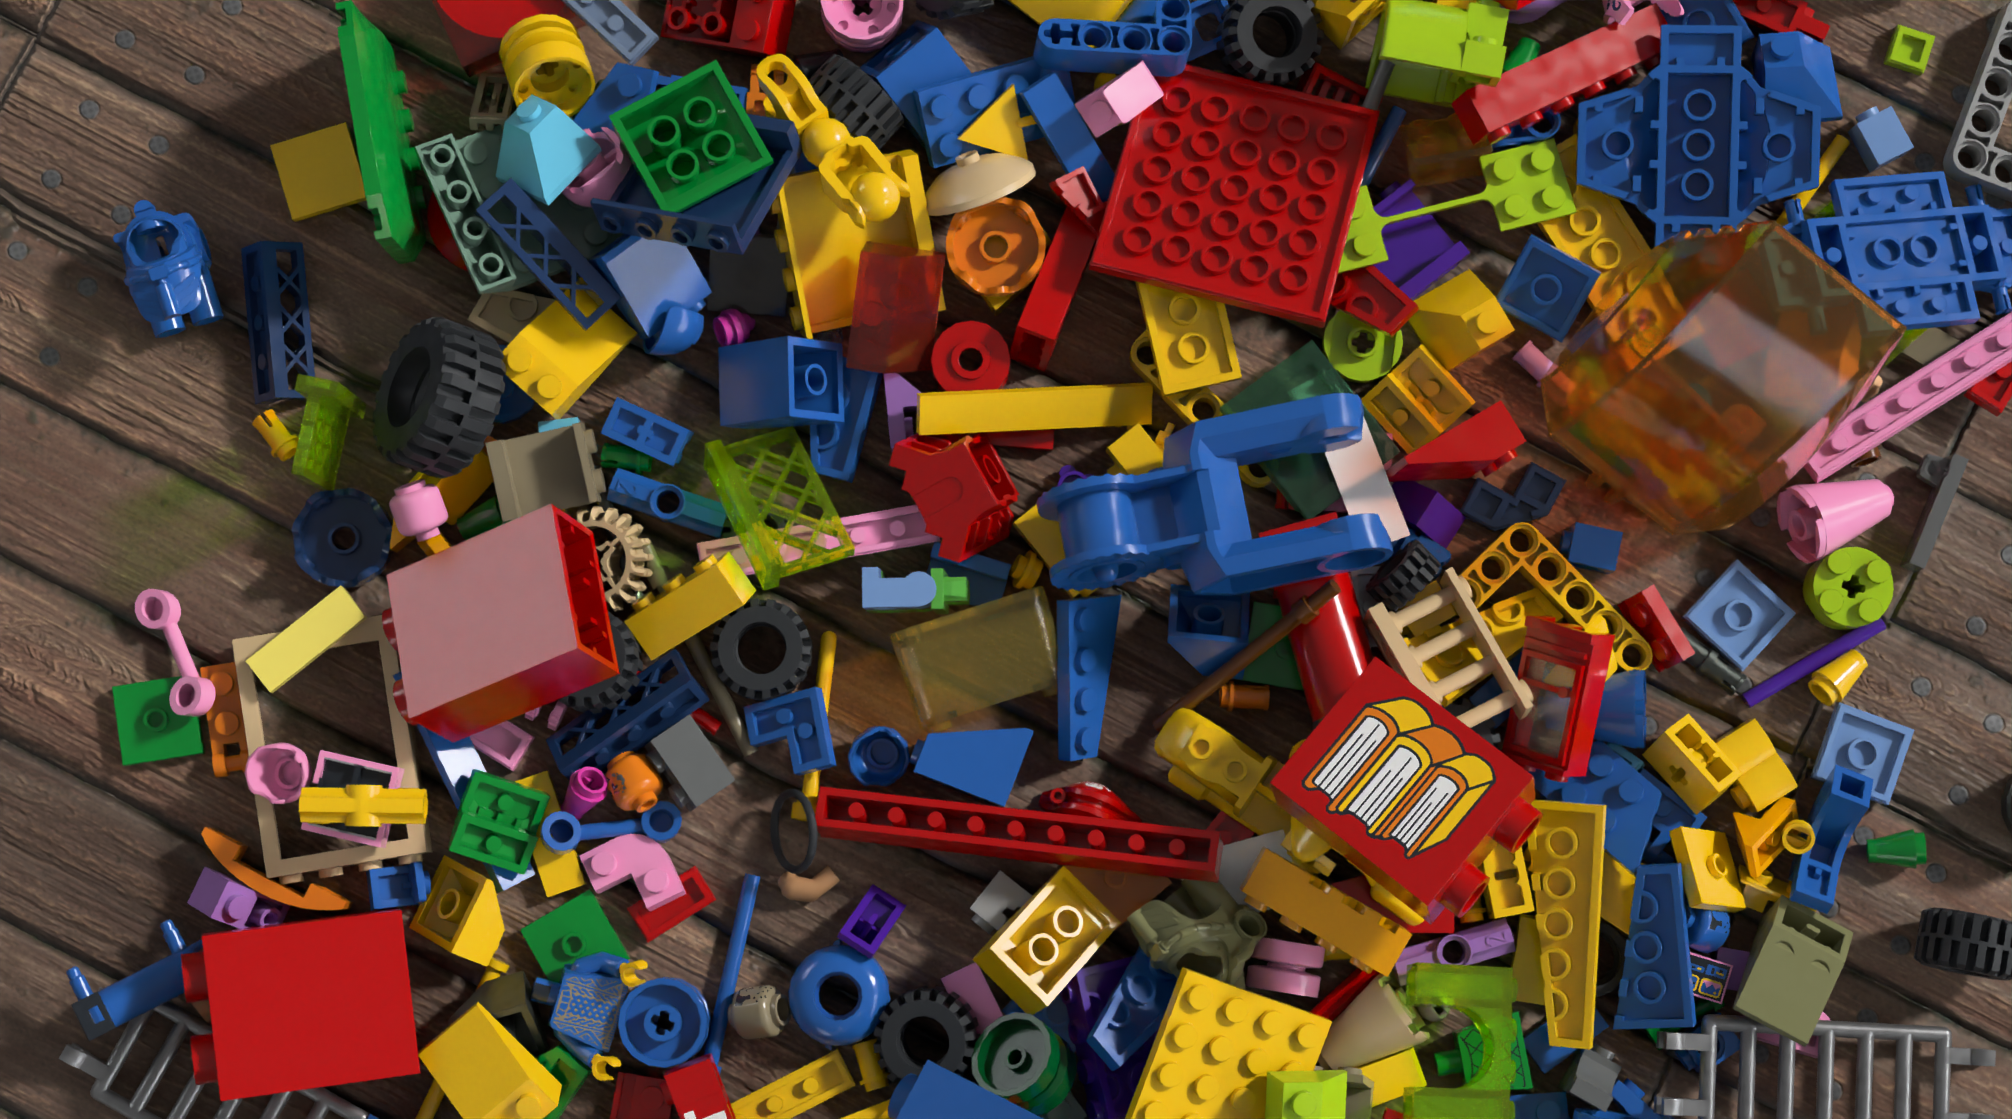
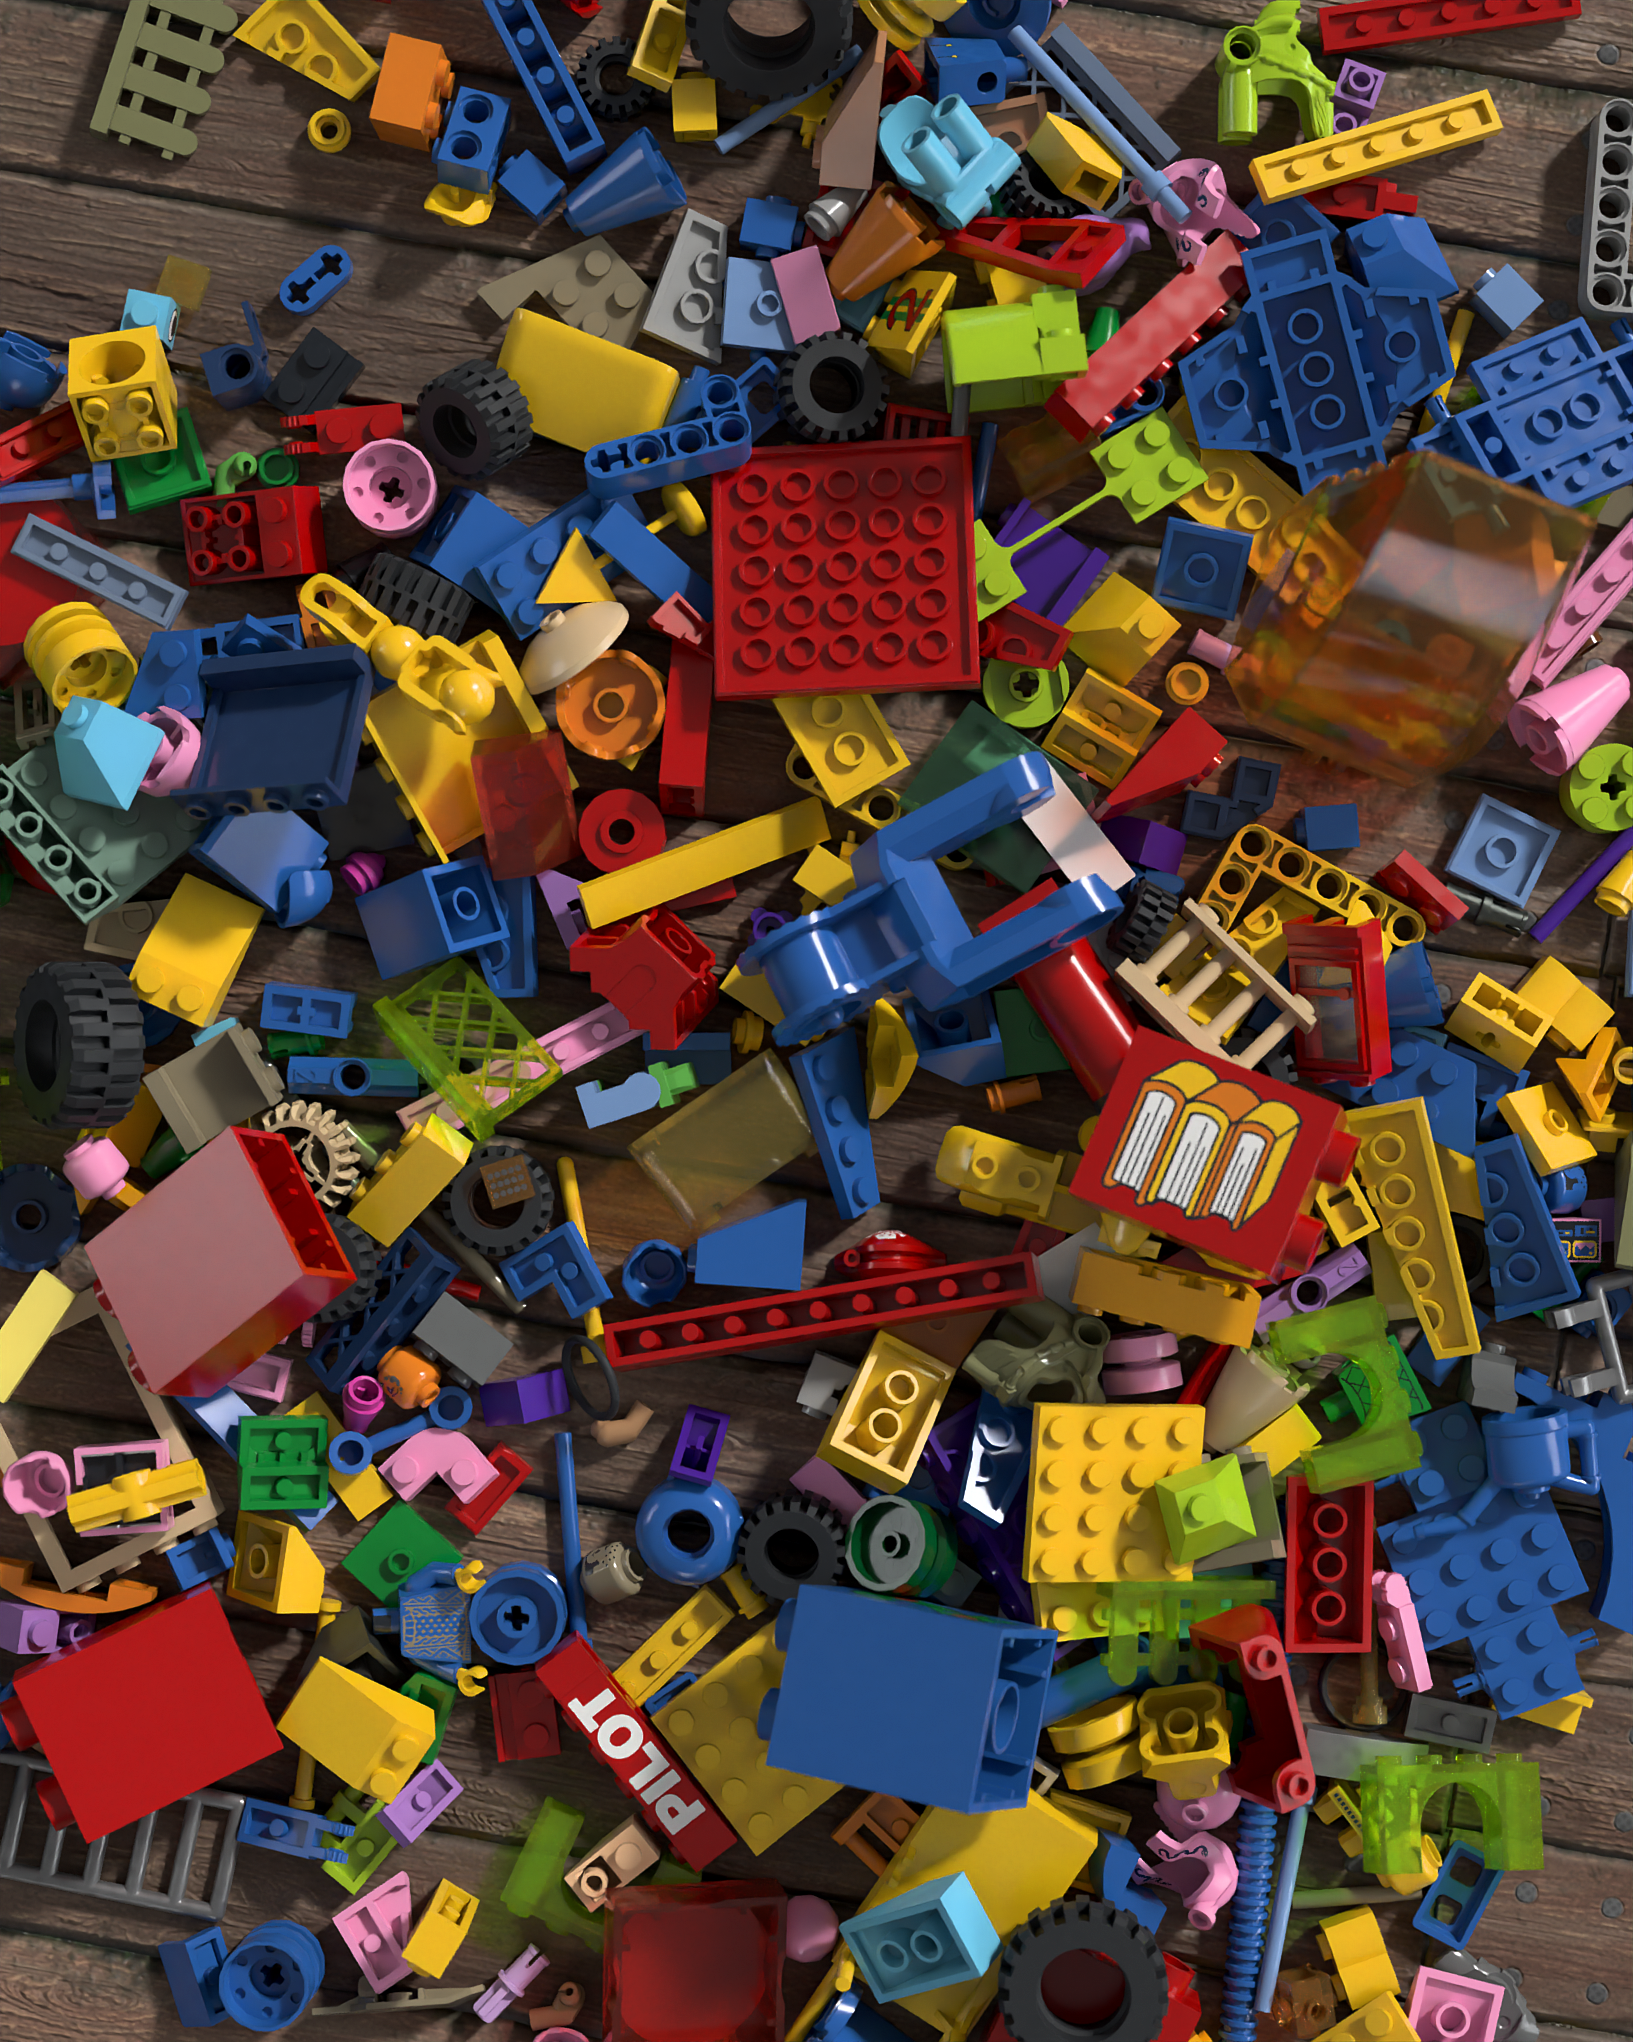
camera: 15 degrees left, 5 degrees up
(557, 245) = (152, 847): dark blue fence -> none
(690, 139) = (254, 695): green slope -> none
(728, 833) = (524, 1398): none -> dark purple slope
(776, 632) = (507, 1181): none -> clear orange tile
(1119, 99) = (693, 508): bright pink slope -> none
(1145, 629) = (889, 1058): none -> yellow brick
(1301, 612) = (1047, 995): reddish brown bar -> none
(1504, 384) = (1186, 683): none -> yellow plate
(1909, 50) = (1508, 195): lime tile -> none

